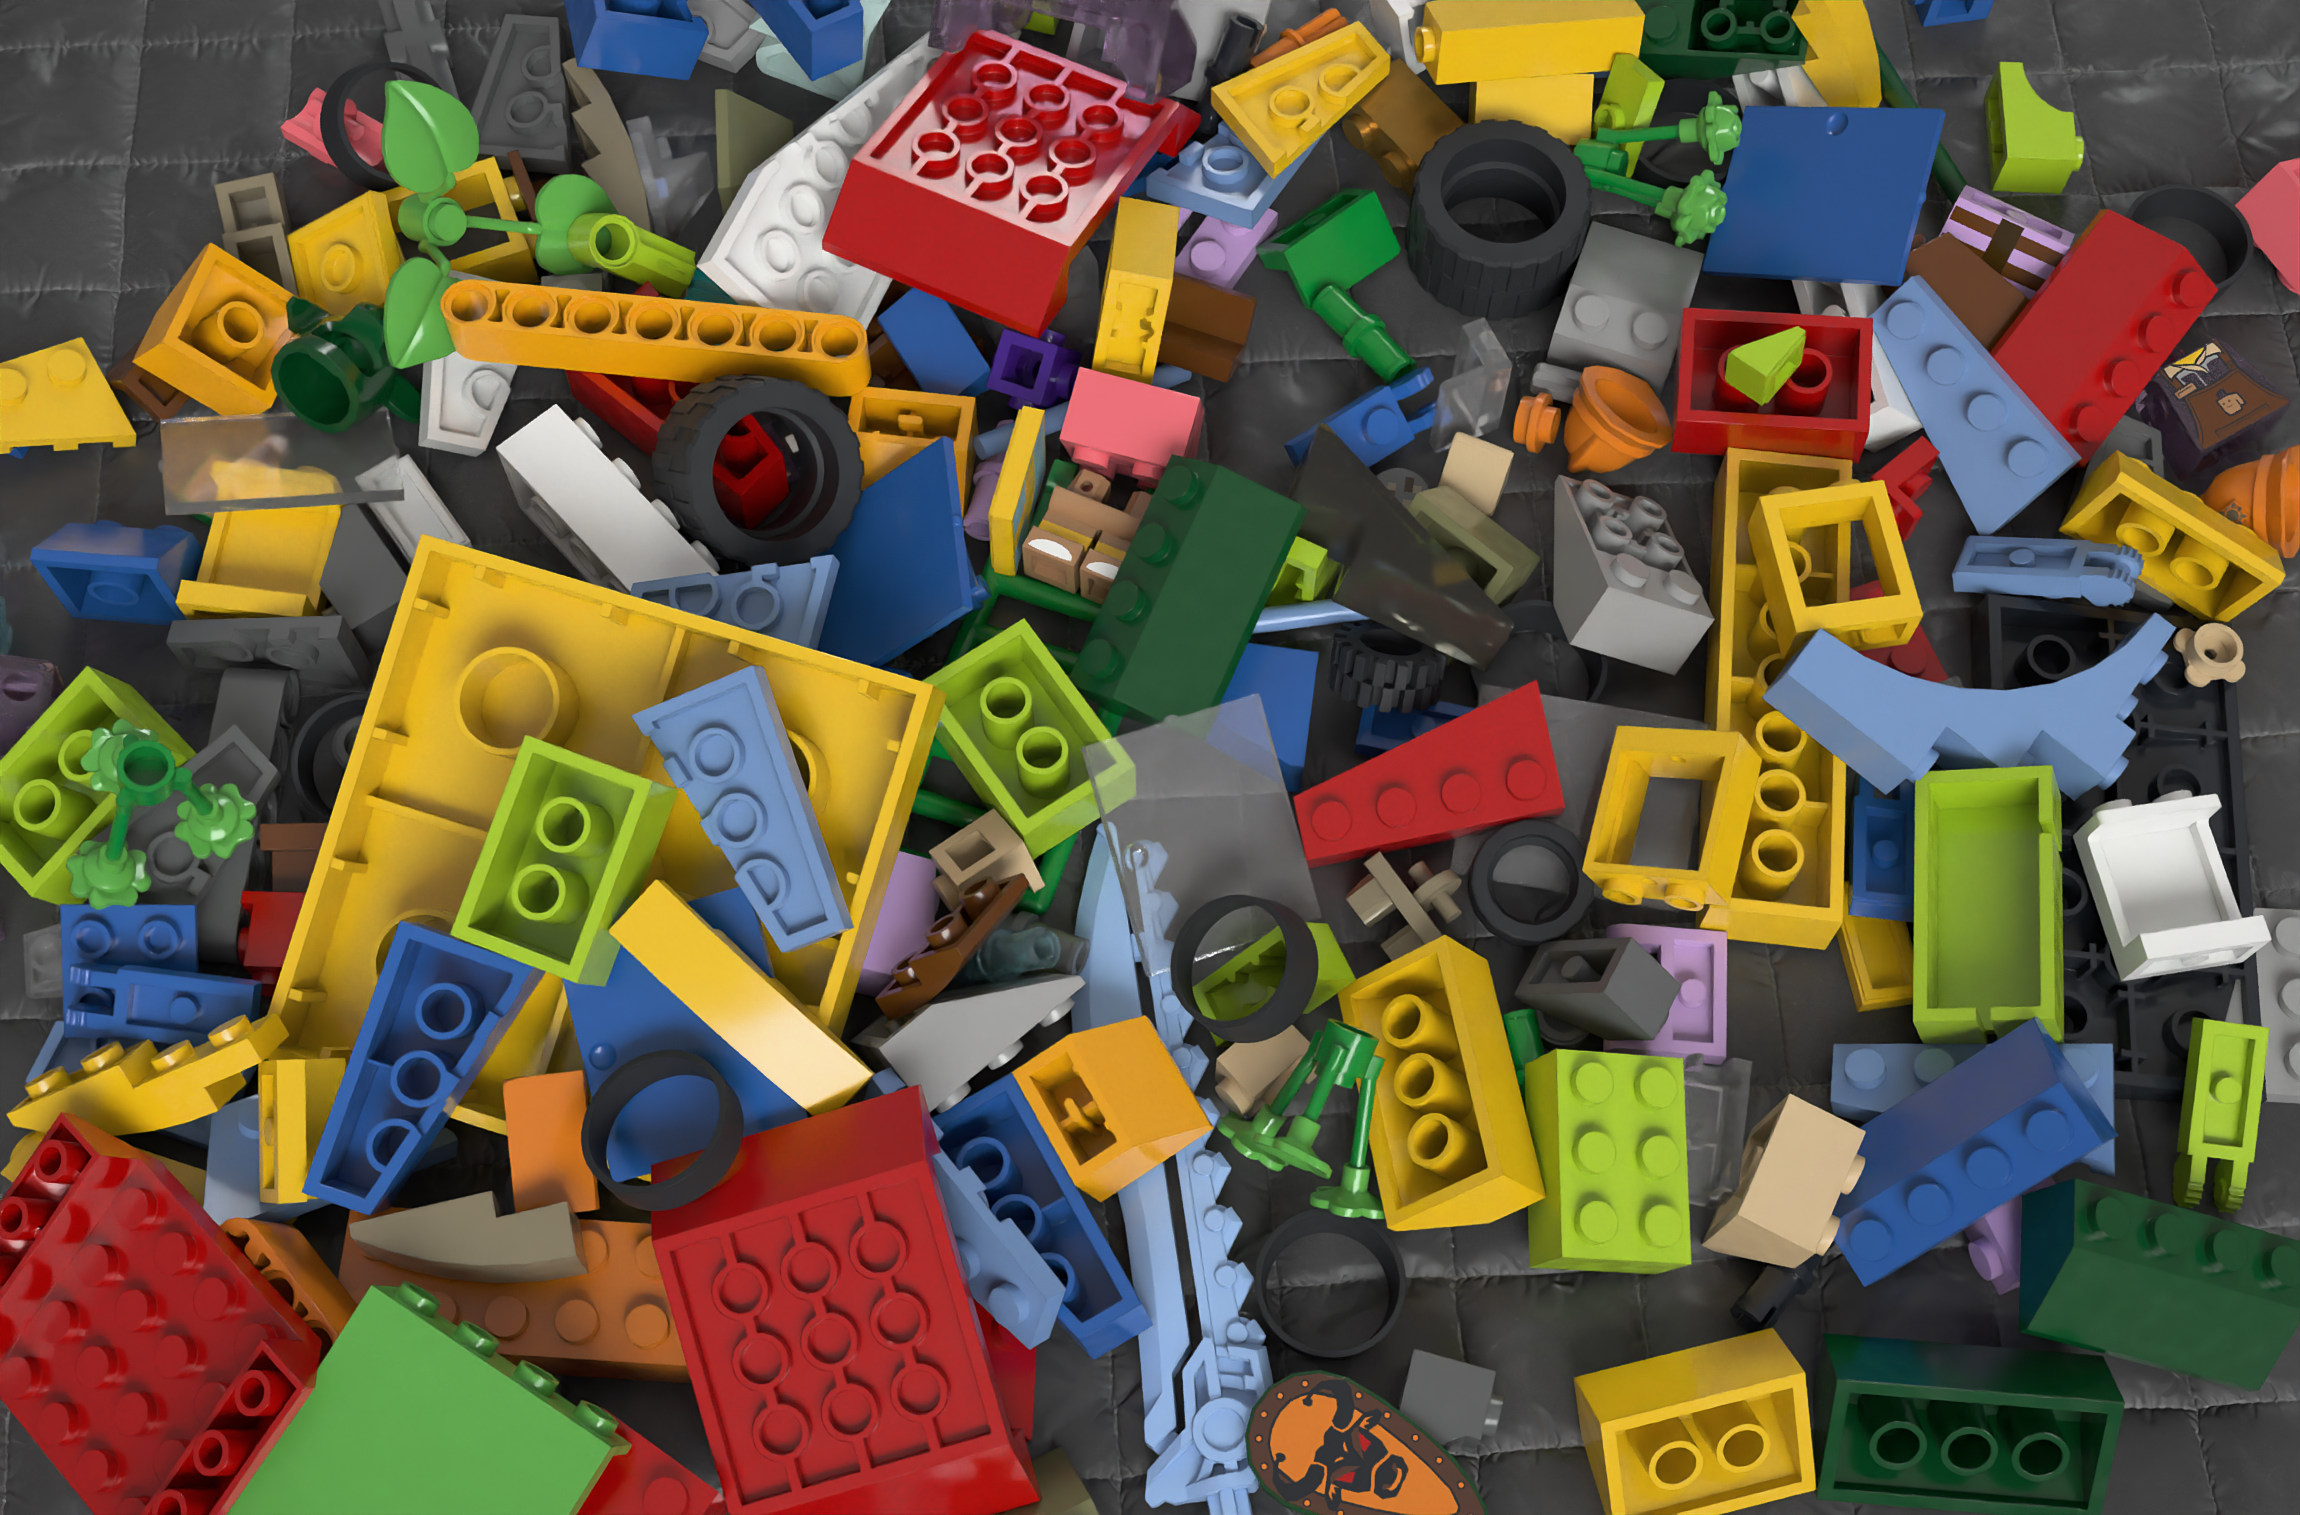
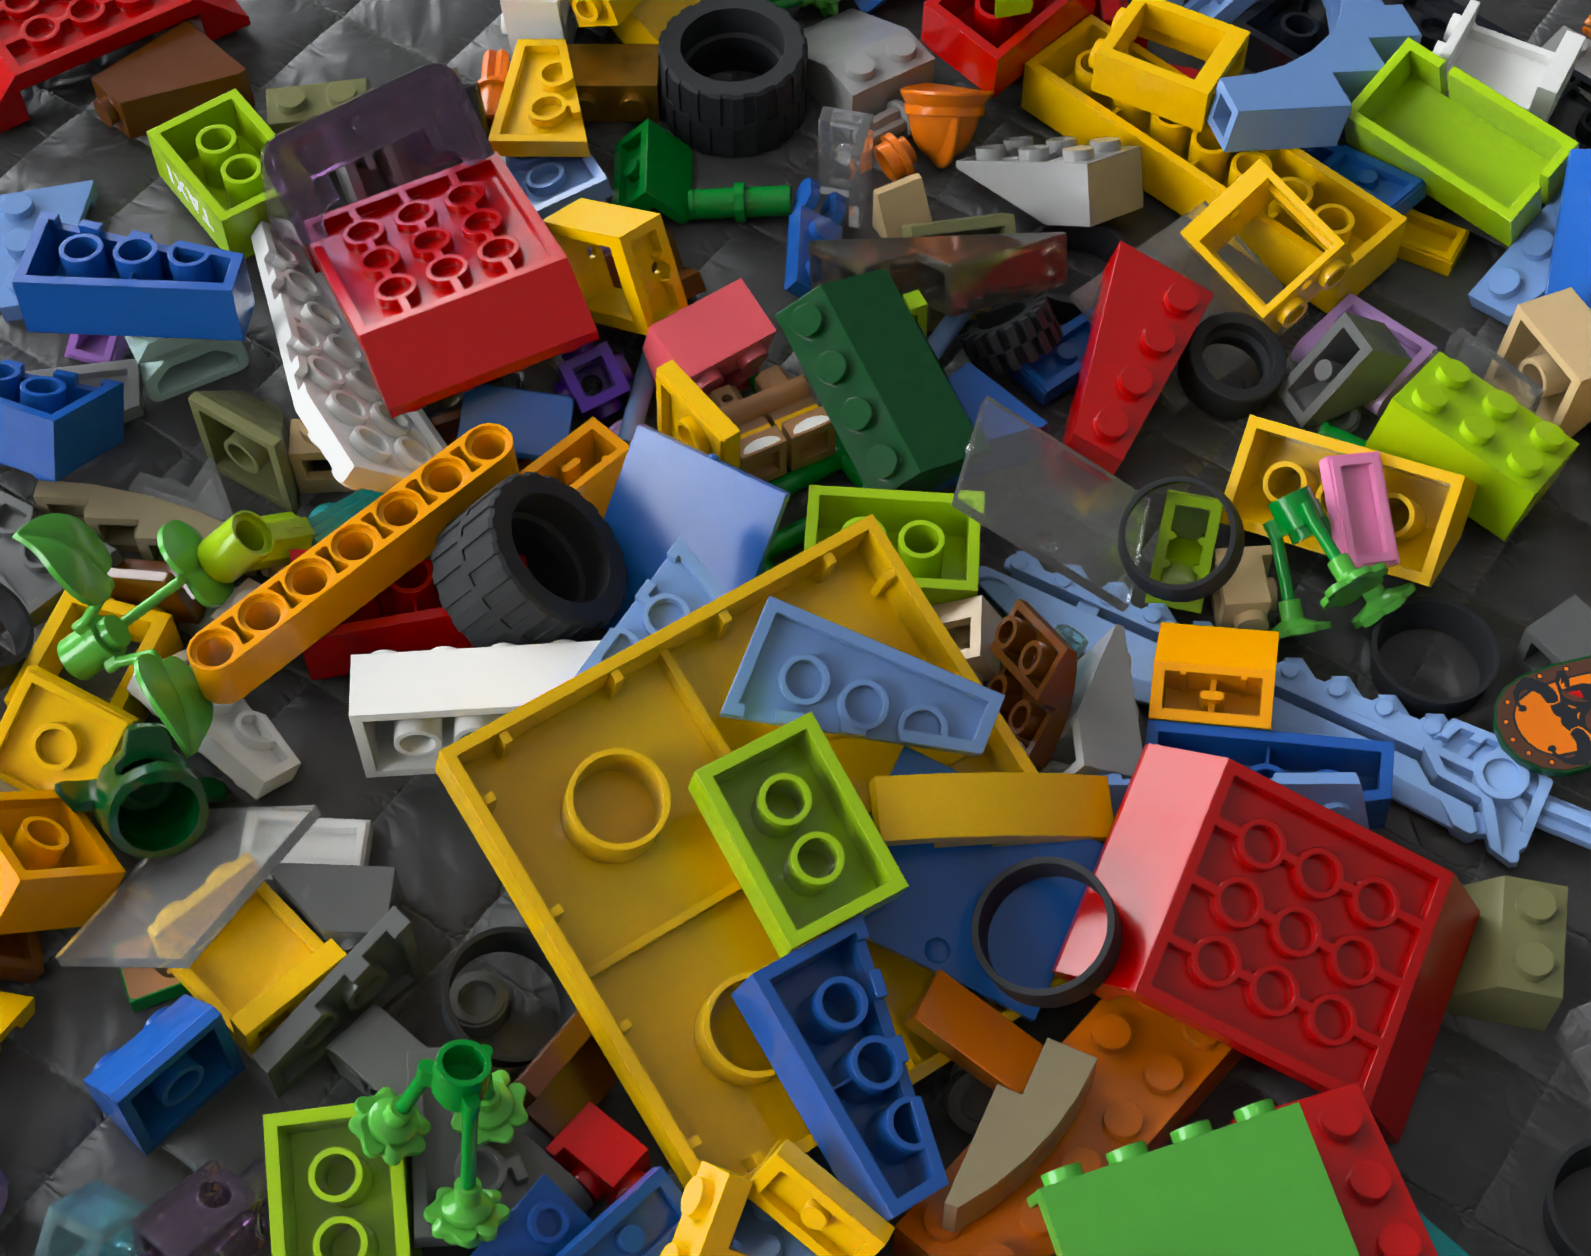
camera: 50 degrees left, 10 degrees down
(1385, 891) = (1192, 436): dark tan hips -> none
(1400, 1106) = (1359, 508): none -> bright pink tile

